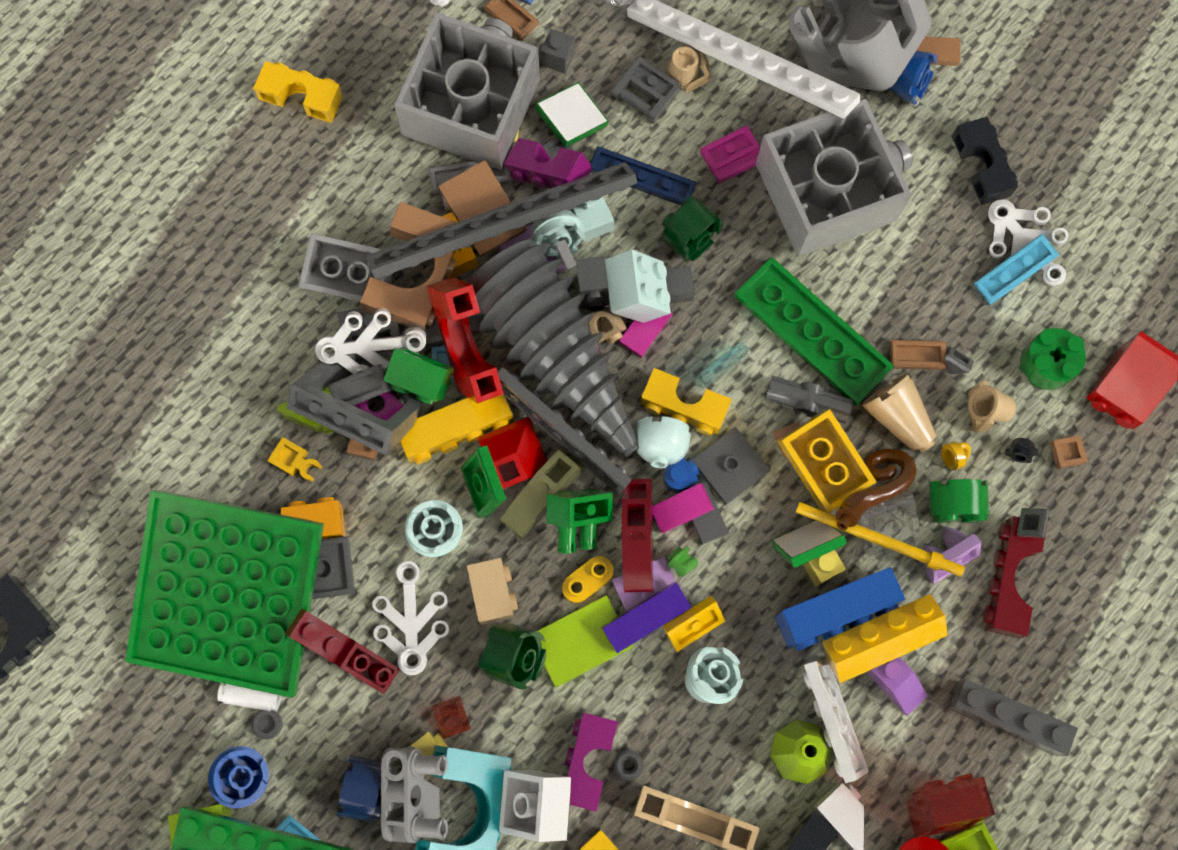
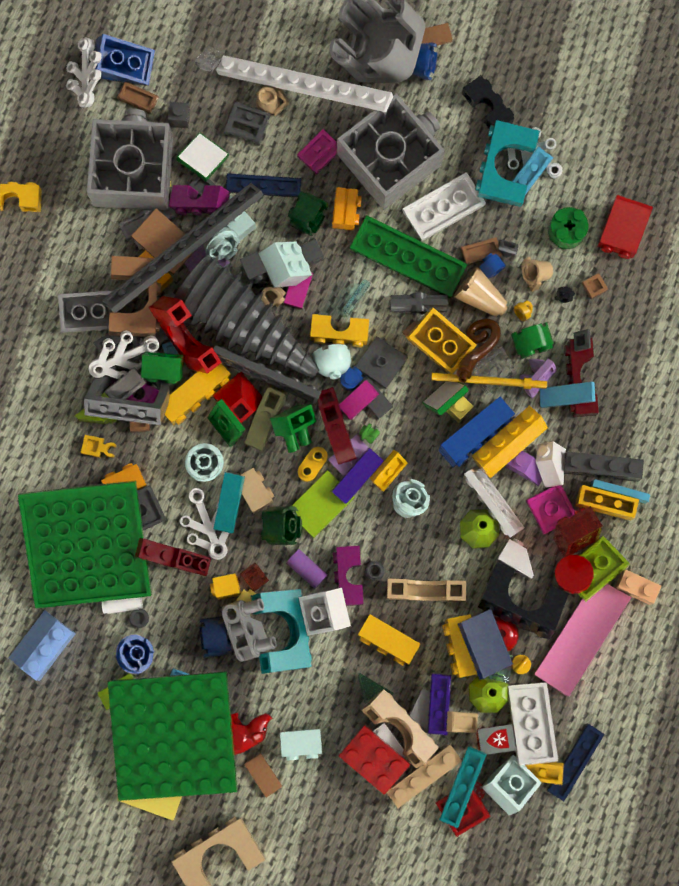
camera: 20 degrees left, 5 degrees up
(114, 721) = (41, 646): none -> light blue slope
(403, 719) = (225, 587): none -> yellow brick
(449, 597) = (229, 502): none -> teal tile
(531, 730) = (306, 569): none -> medium lavender brick
(565, 255) = (231, 257): light grey tile -> none
(744, 240) = (345, 208): none -> light orange brick
(883, 278) = (443, 207): none -> white plate
(916, 756) = (550, 507): none -> dark pink tile
(929, 377) = (492, 265): none -> blue plate
(936, 689) = (551, 463): none -> white slope
(962, 266) = (492, 185): none -> teal arch
(989, 595) = (567, 394): none -> medium azure tile
(1004, 775) = (607, 502): none -> yellow brick
(1027, 763) = (643, 497): none -> medium azure tile

